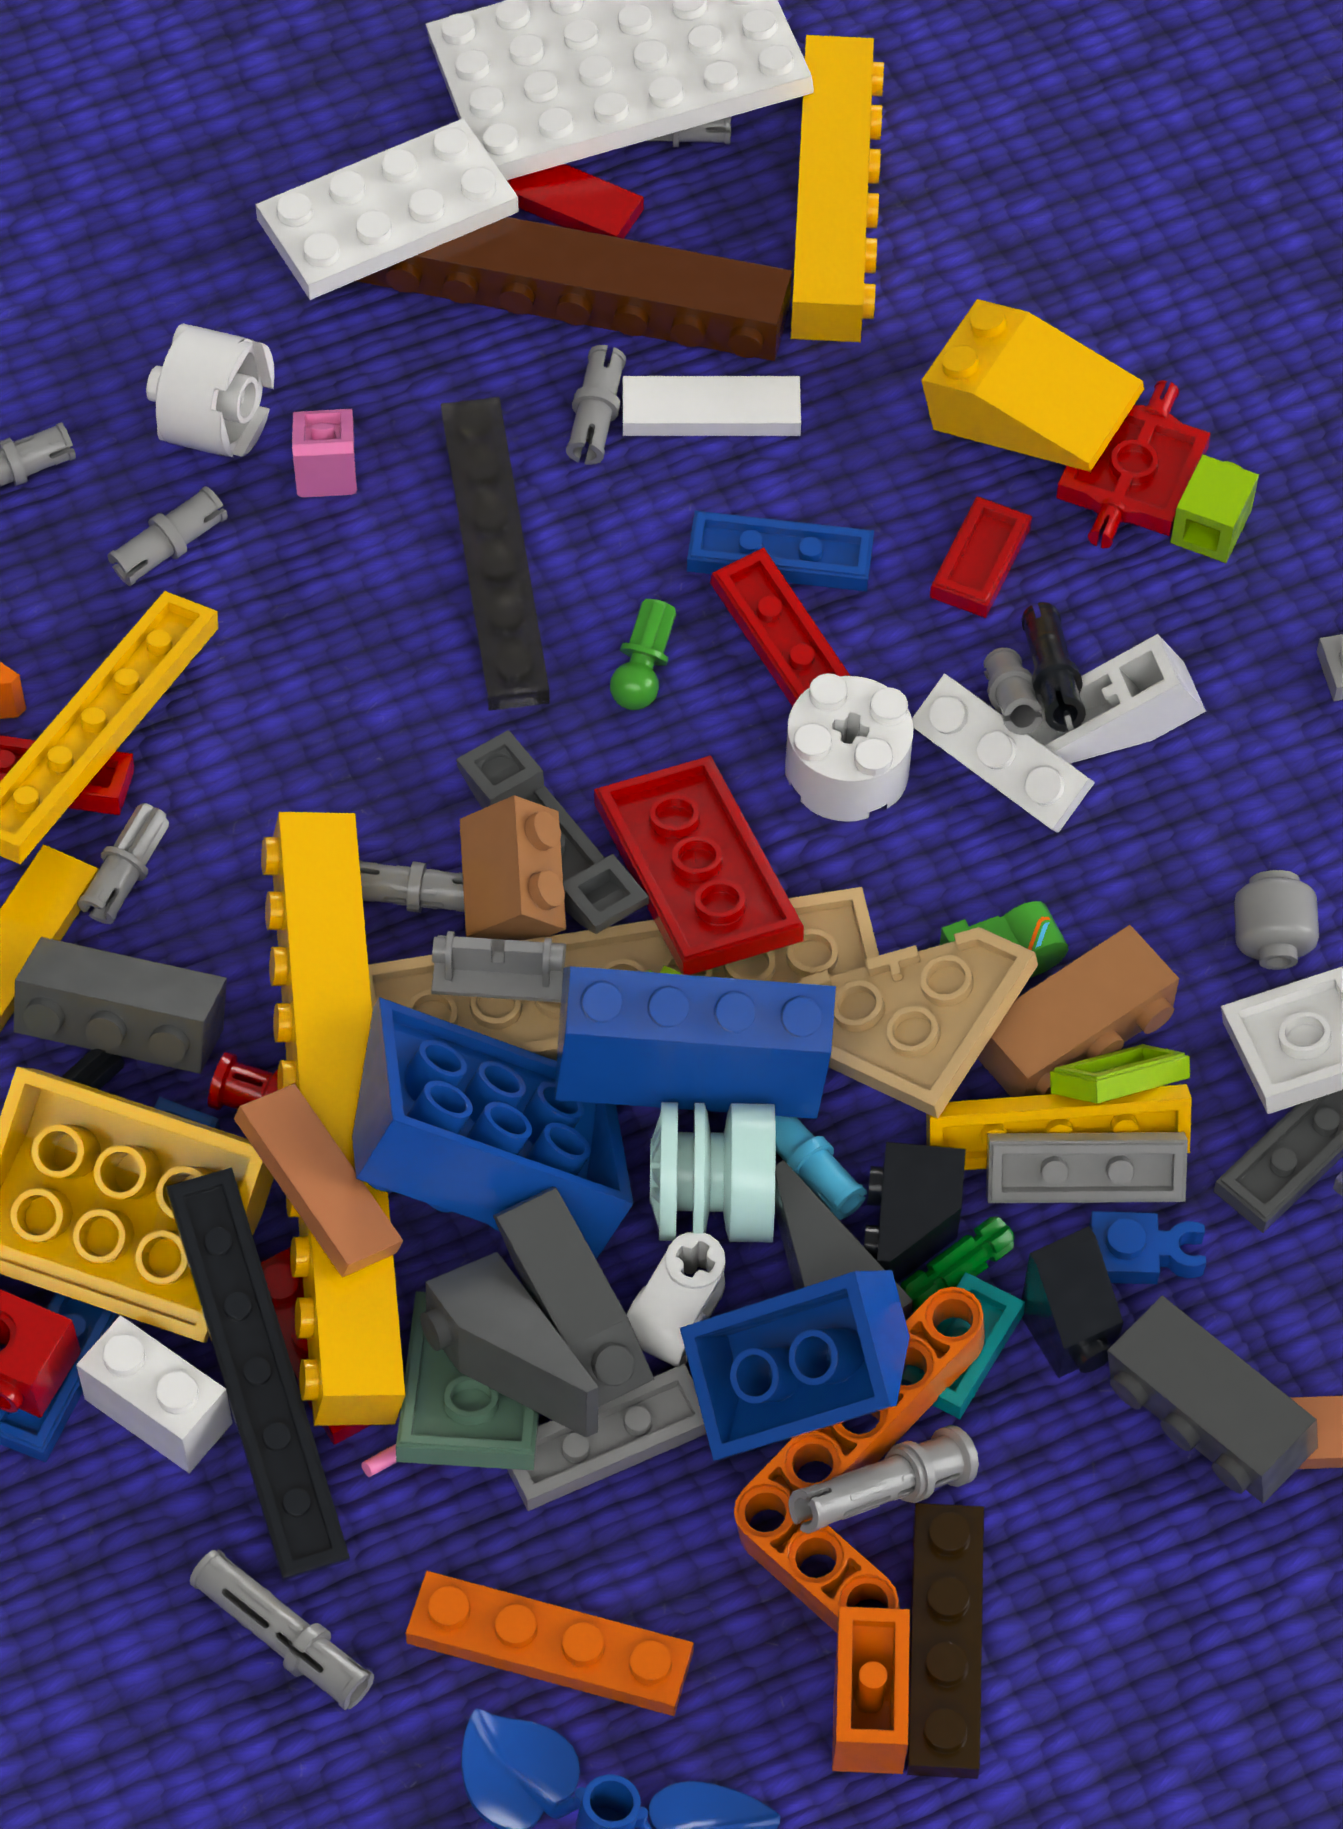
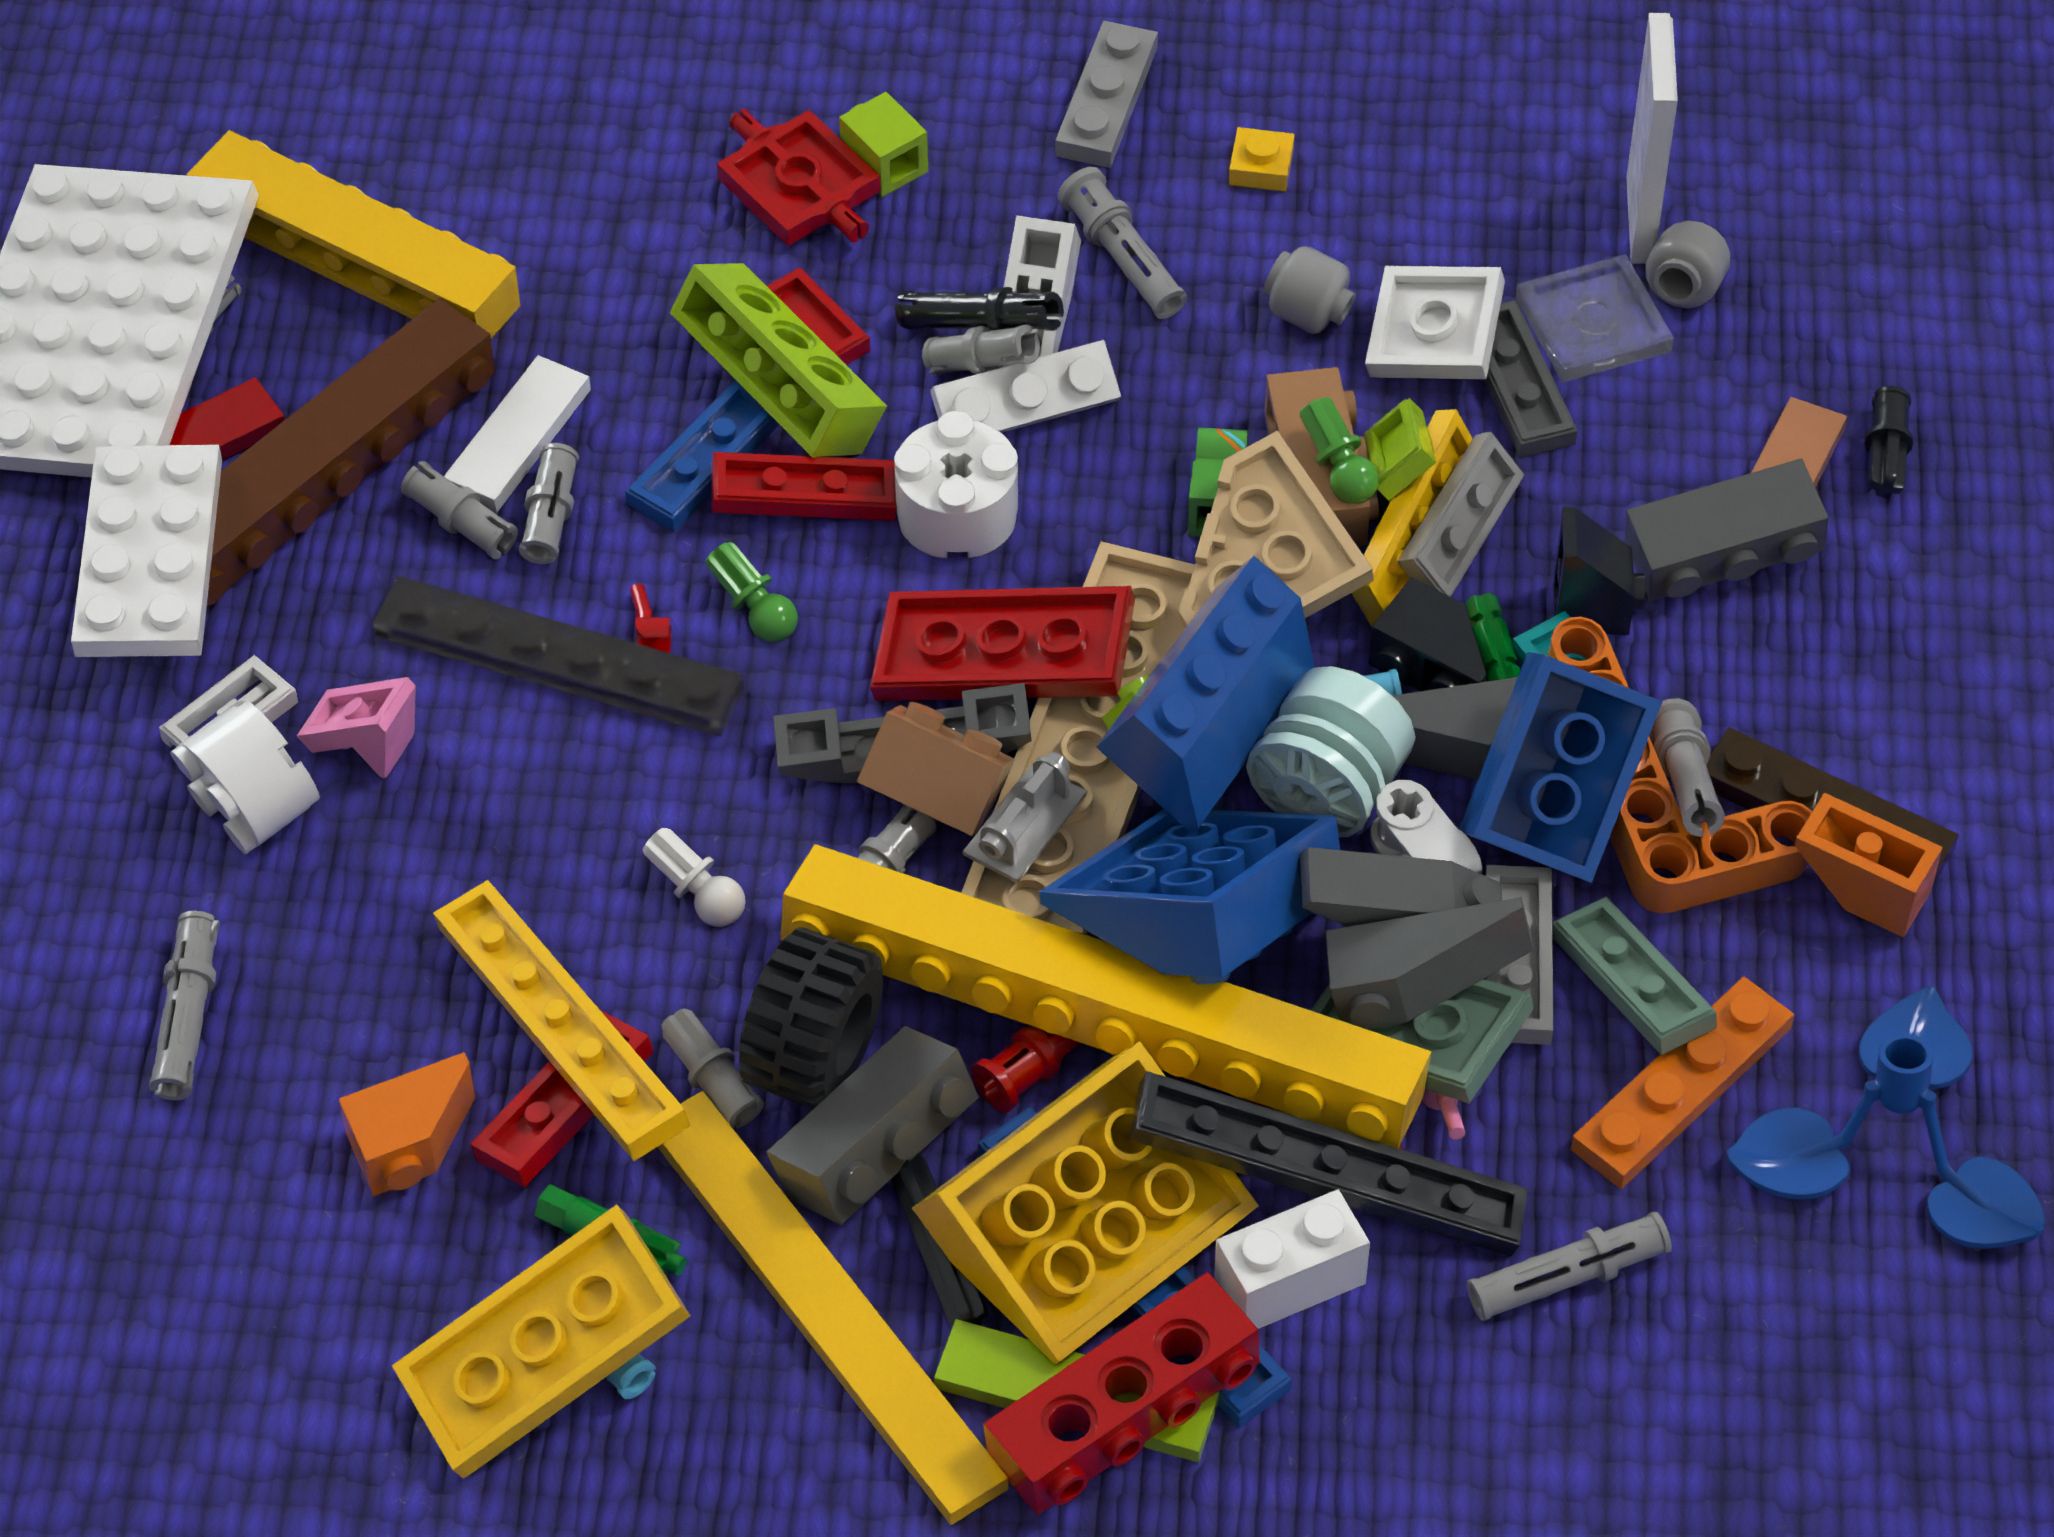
camera: 60 degrees left, 5 degrees down
(167, 536) = (367, 888): light grey pin -> none
(182, 898) = (810, 1017): none -> black tyre
(304, 372) = (271, 697): none -> white tile
(310, 786) = (717, 899): none -> white axle
(318, 1180) = (1196, 1014): nougat tile -> none
(557, 601) = (651, 631): none -> red hand
(634, 1545) = (1634, 975): none -> sand green tile
(643, 463) = (549, 503): none -> light grey pin
(900, 546) = (778, 359): none -> lime brick
(1027, 388) = (682, 201): yellow slope -> none
(1047, 1045) = (1352, 476): none -> bright green axle
(1137, 1249) = (1536, 524): blue plate -> none
(1246, 727) = (1159, 288): none -> light grey pin

